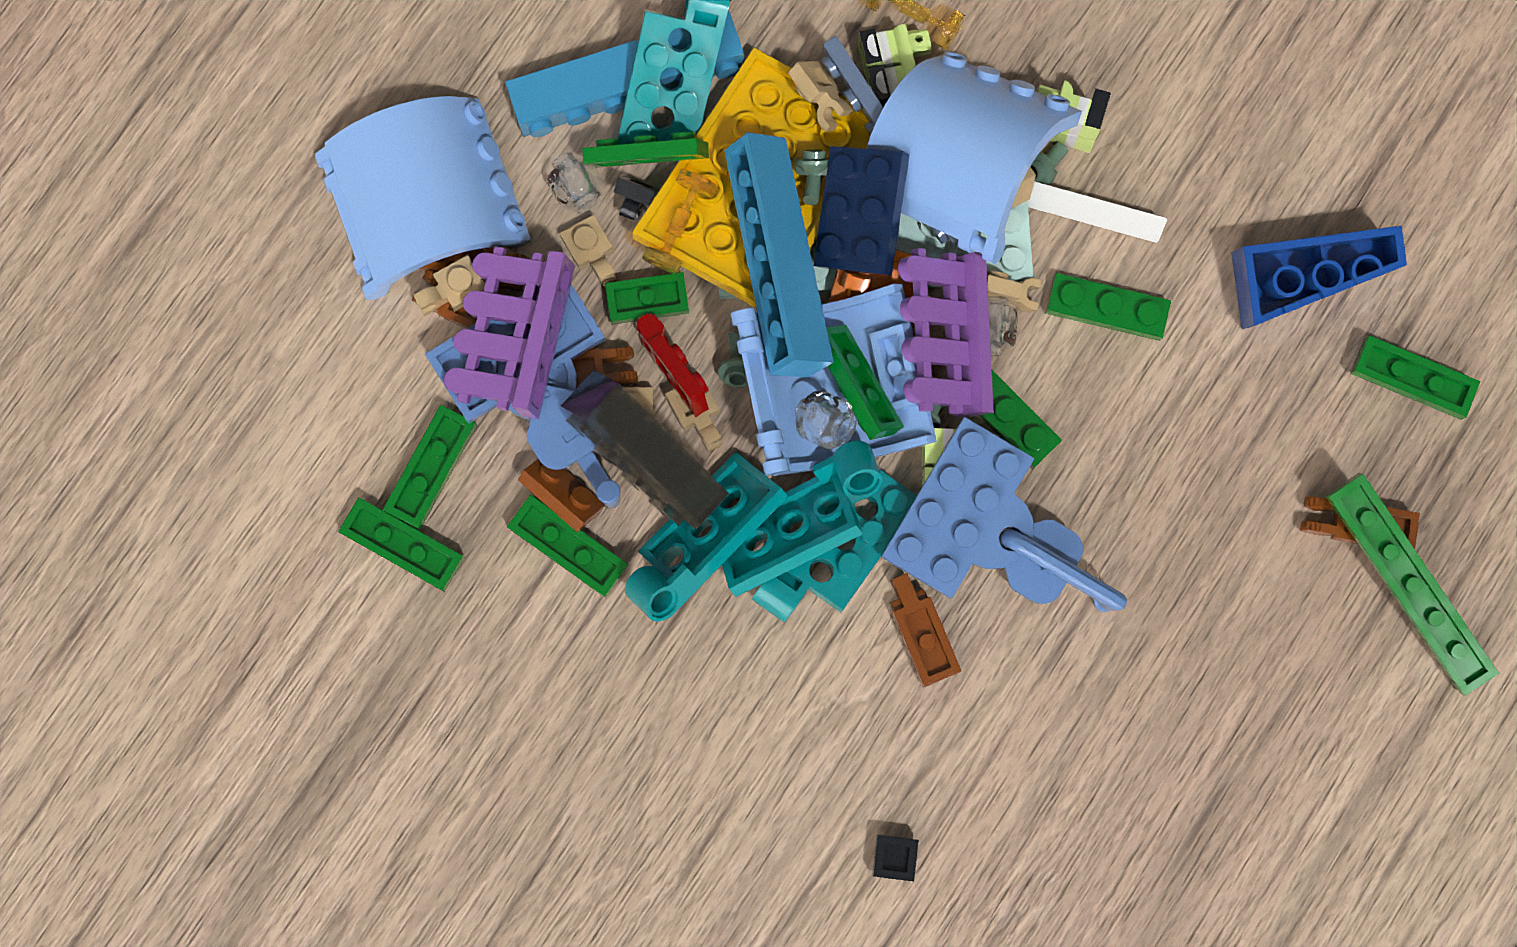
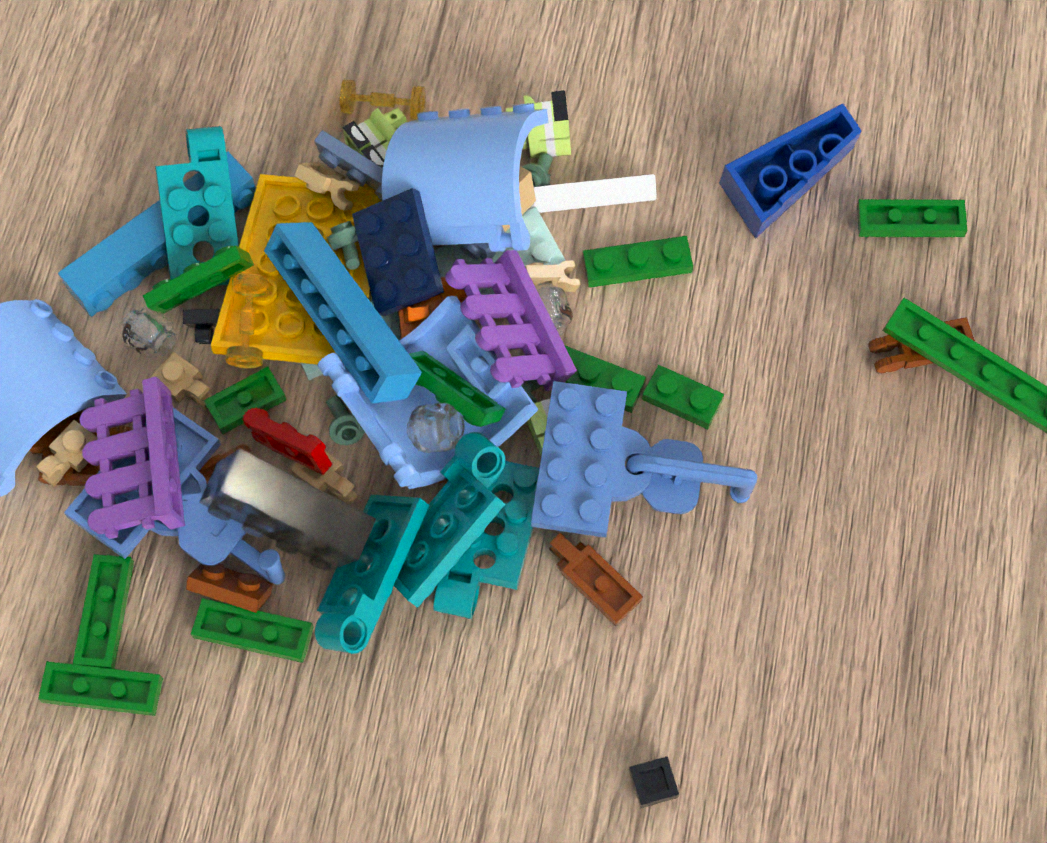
camera: 15 degrees left, 15 degrees down
(1091, 475) = (683, 397): none -> green plate

